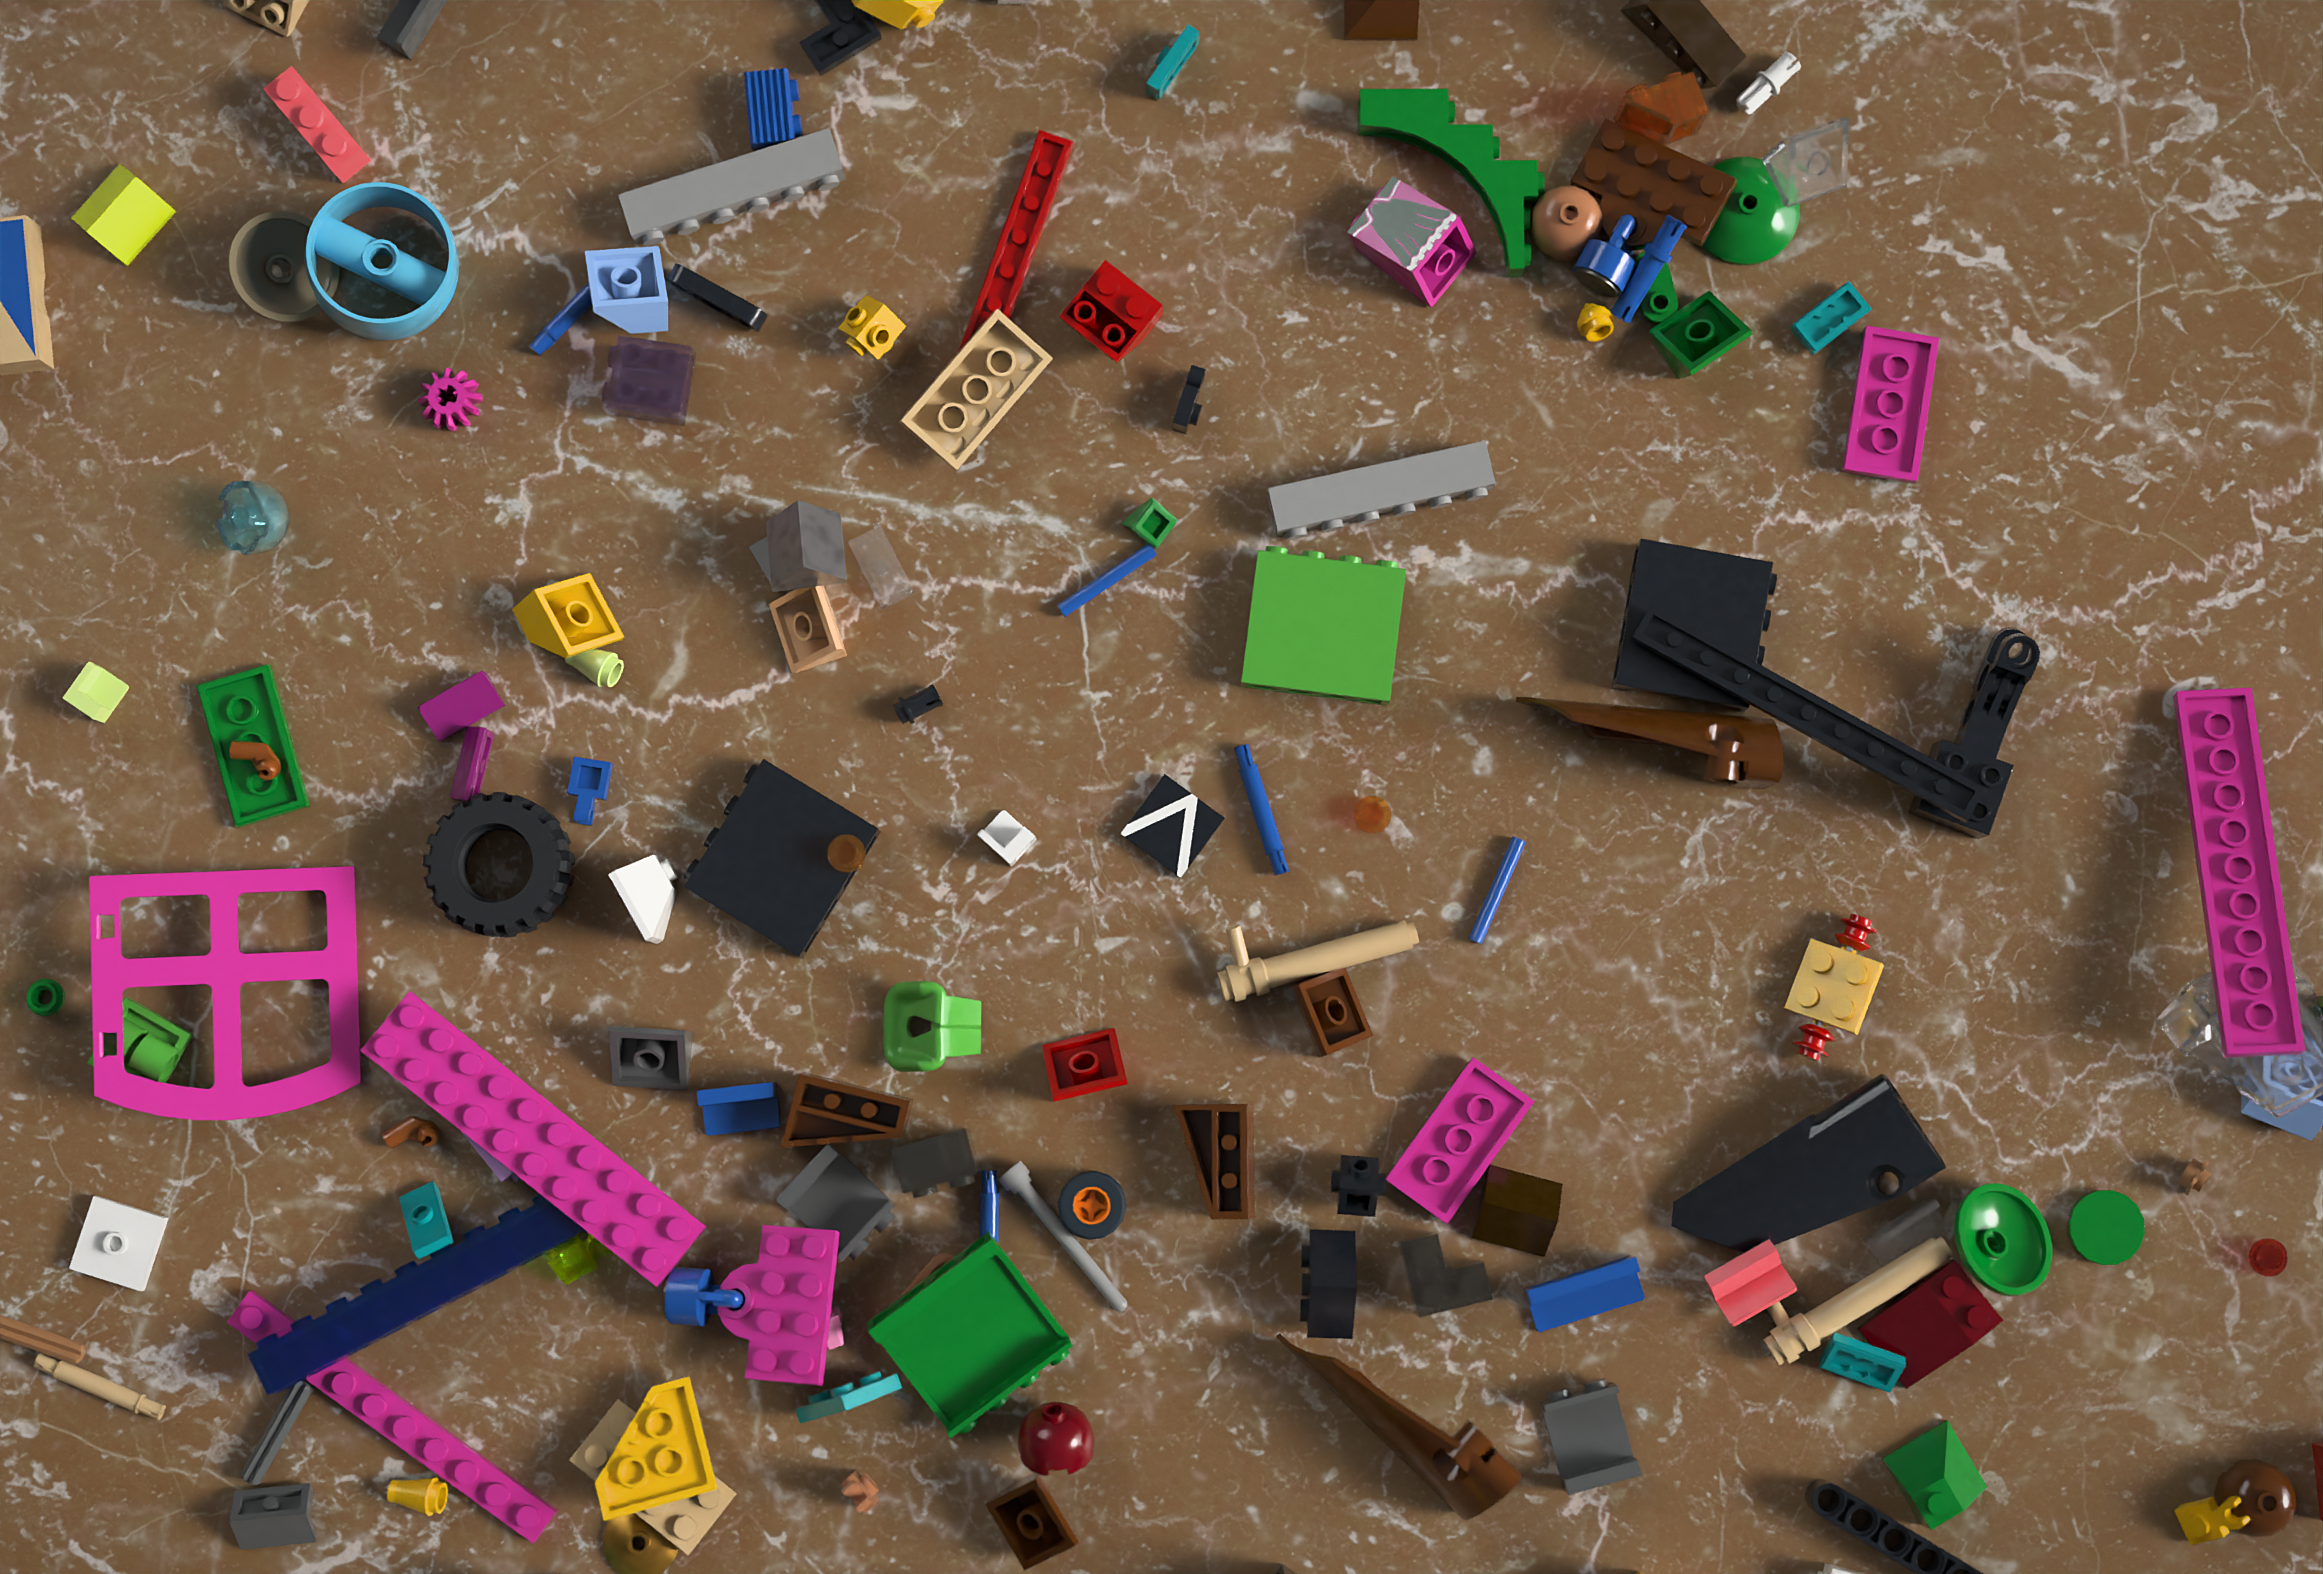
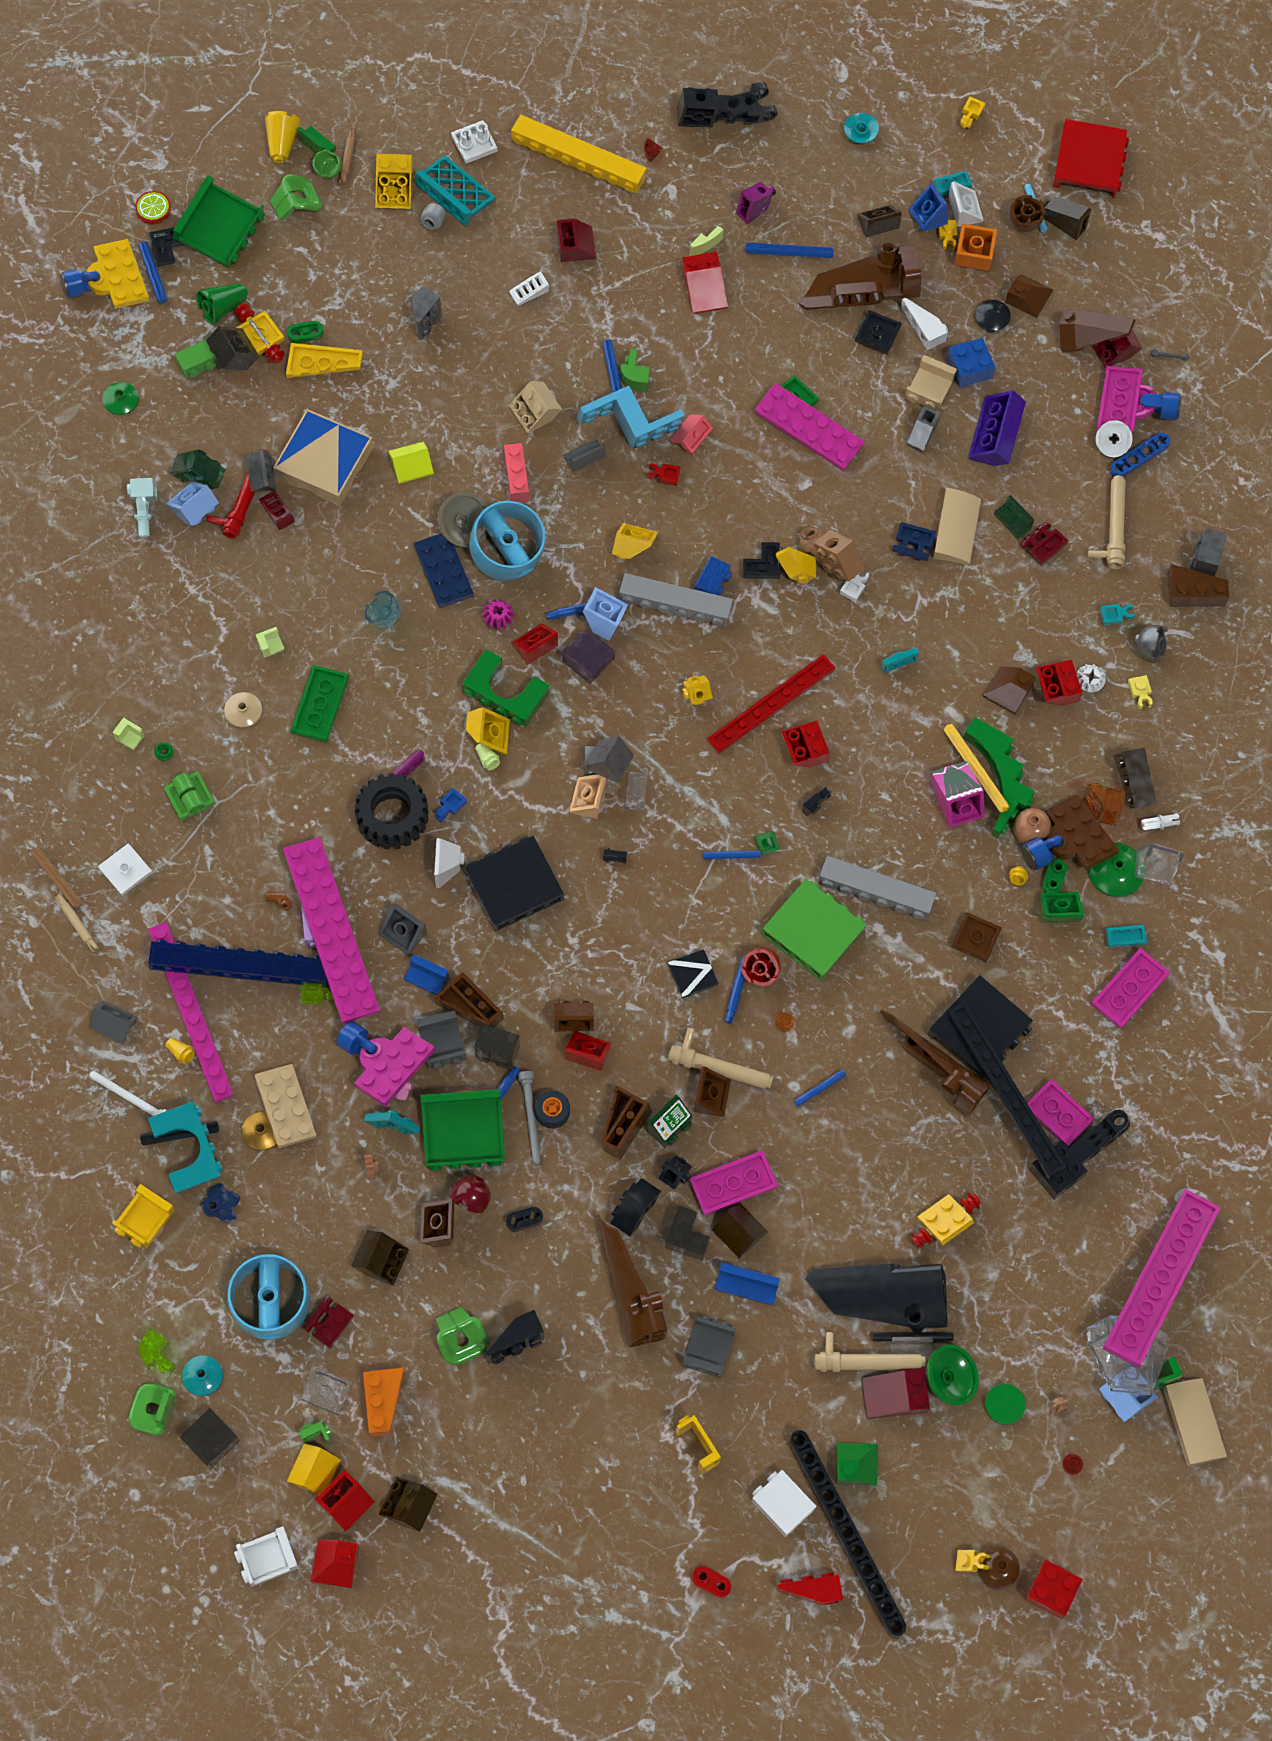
camera: 30 degrees right, 15 degrees down
(147, 841) = (243, 717): none -> tan dish
(225, 972) = (246, 785): dark pink window -> none
(260, 755) = (321, 707): dark orange arm -> none
(276, 1432) = (137, 987): dark grey axle -> none
(306, 377) = (443, 570): none -> dark blue plate
(425, 1220) = (261, 937): teal plate -> none
(461, 706) = (418, 739): magenta slope -> none
(546, 410) = (536, 643): none -> red slope
(594, 124) = (632, 540): none -> yellow slope
(595, 547) = (518, 709): none -> green arch
(659, 1455) = (294, 1094): yellow plate -> none
(717, 297) = (639, 640): black beam -> none
(846, 853) = (543, 894): clear orange plate -> none
(952, 1033) = (541, 996): bright green piece -> none
(975, 389) = (725, 740): tan slope -> none
(1007, 837) = (617, 935): white panel -> none
(1026, 1025) = (573, 1016): none -> reddish brown slope
(1156, 1408) = (523, 1214): none -> black beam
(1280, 748) = (761, 966): none -> red cylinder
(1298, 1108) = (670, 1122): none -> slope
(1417, 178) = (976, 767): none -> yellow axle
(1591, 472) = (976, 937): none -> reddish brown plate
(1648, 268) = (1055, 864): blue pin -> none
(1750, 1283) = (824, 1323): coral panel -> none
(1862, 1362) = (854, 1391): teal plate -> none
(1896, 1210) = (879, 1337): none -> black bar
(1904, 690) = (1059, 1113): none -> dark pink plate

